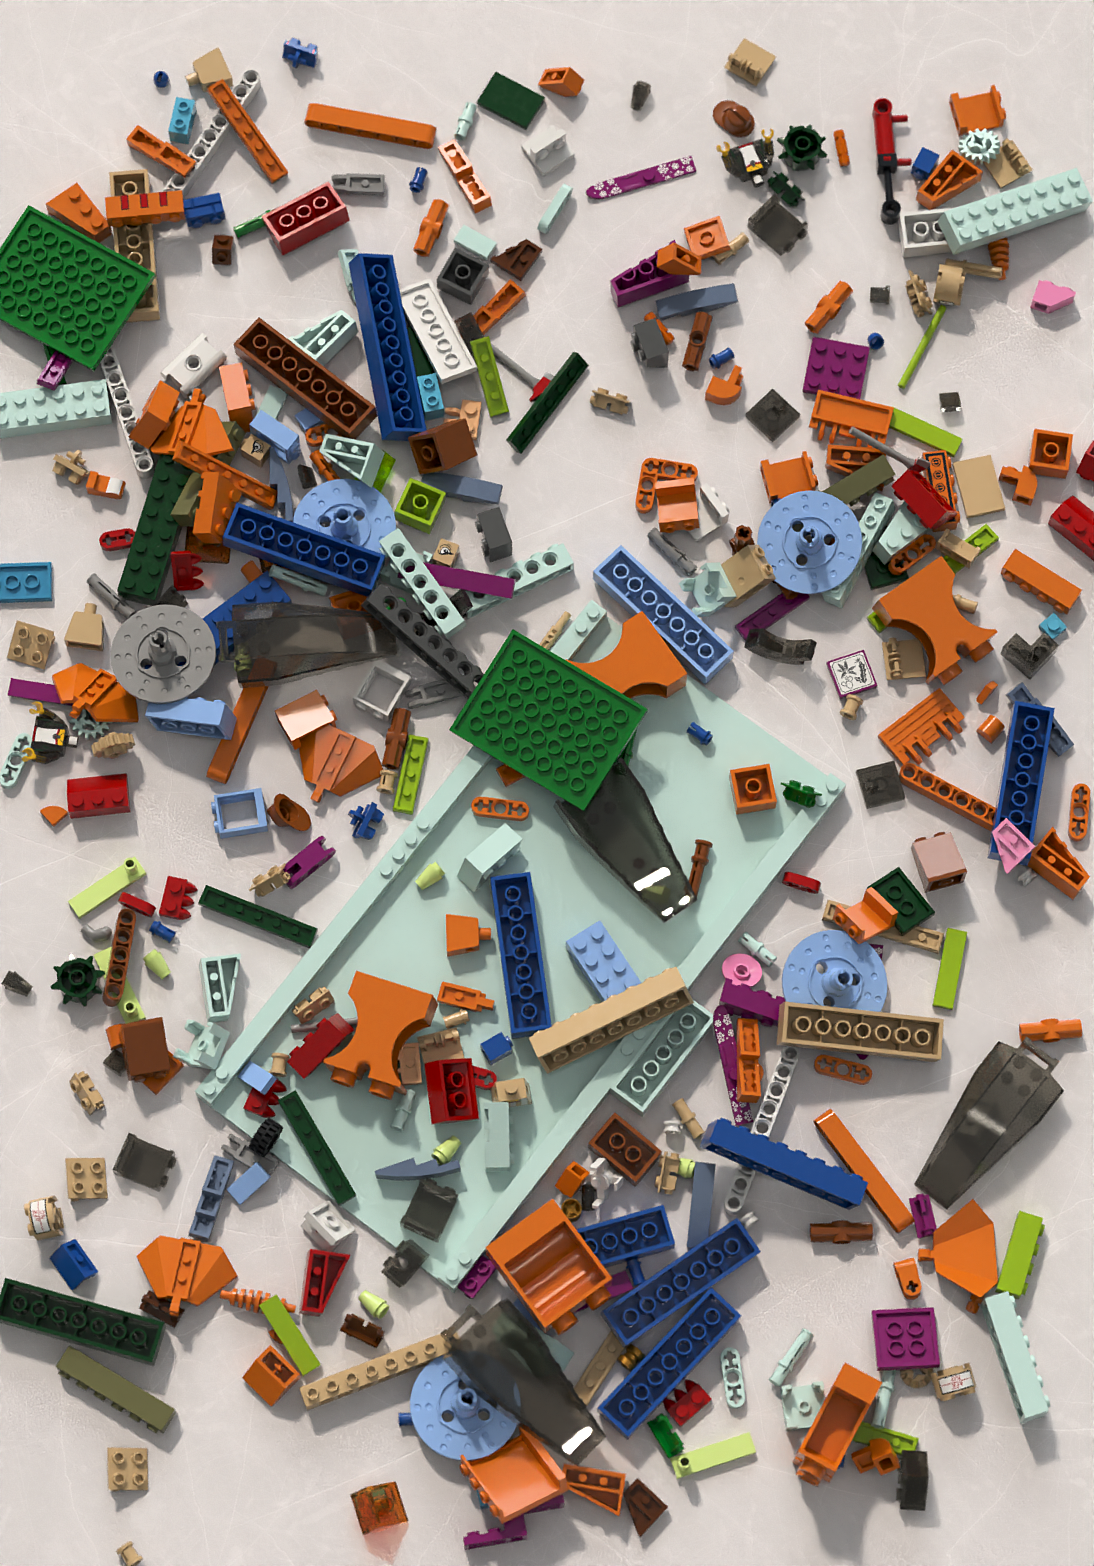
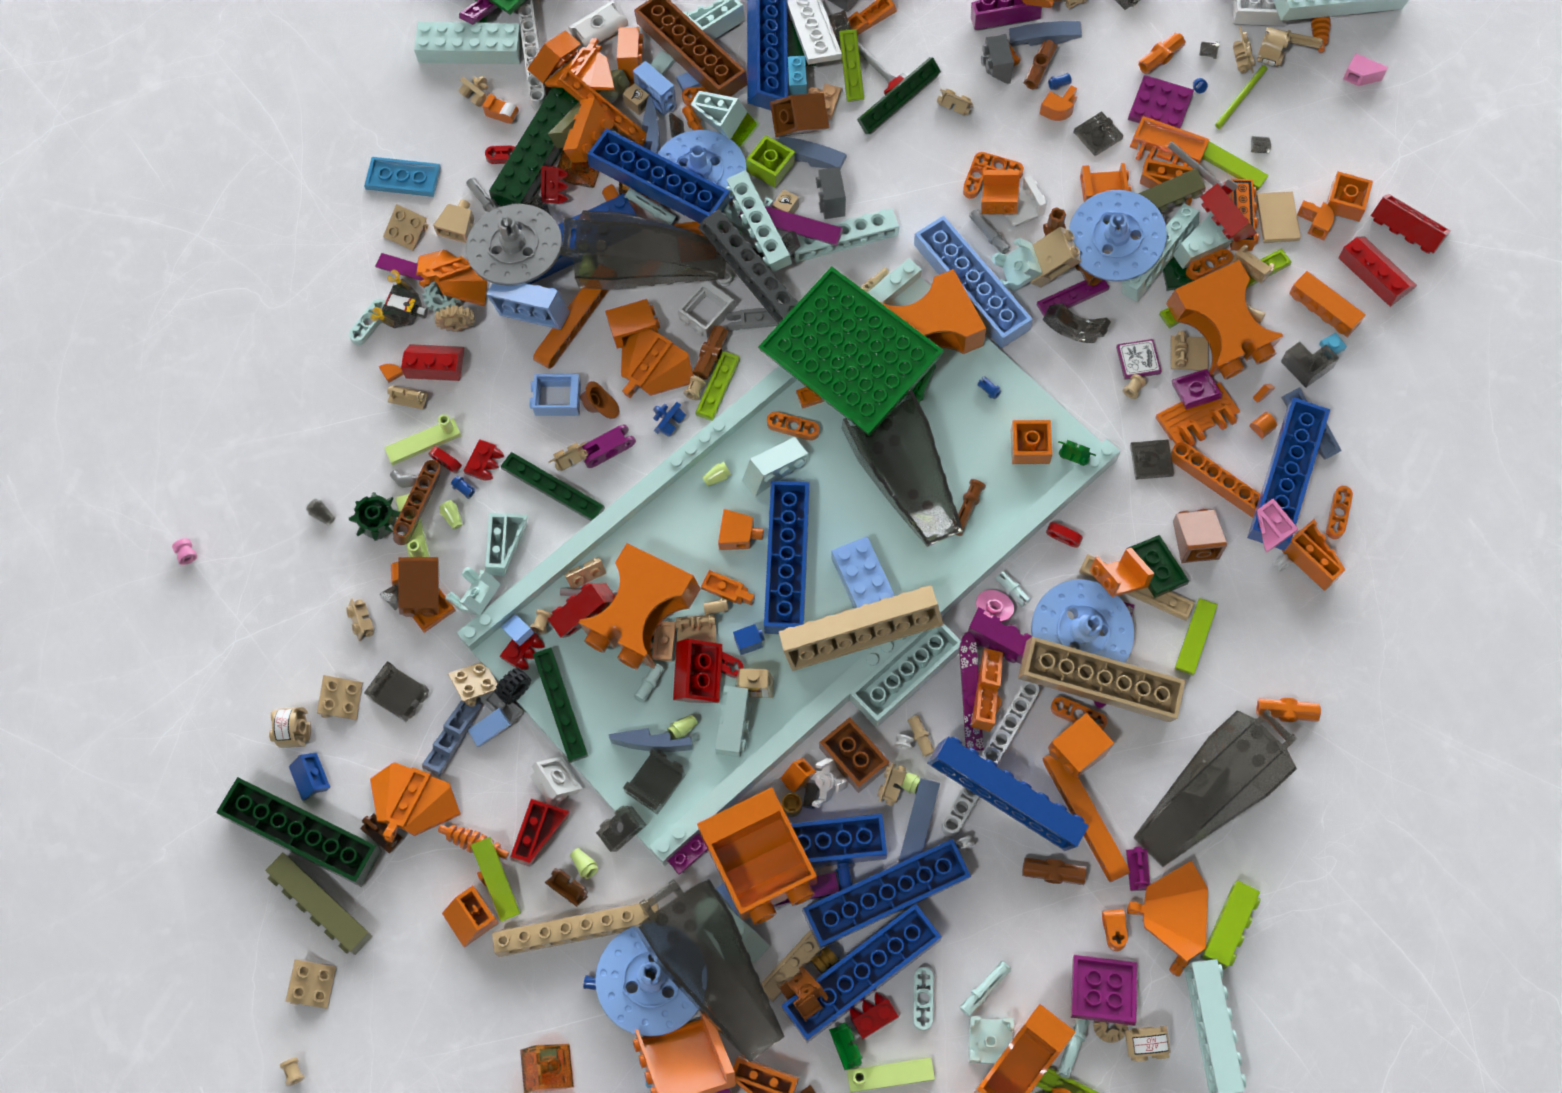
camera: 15 degrees right, 5 degrees down
(79, 840) = (407, 397): none -> tan hinge
(222, 1139) = (473, 682): none -> tan hinge
(620, 1389) = (807, 991): none -> dark orange piece
(849, 1104) = (1080, 746): none -> orange slope
(916, 700) = (1196, 389): none -> magenta tile

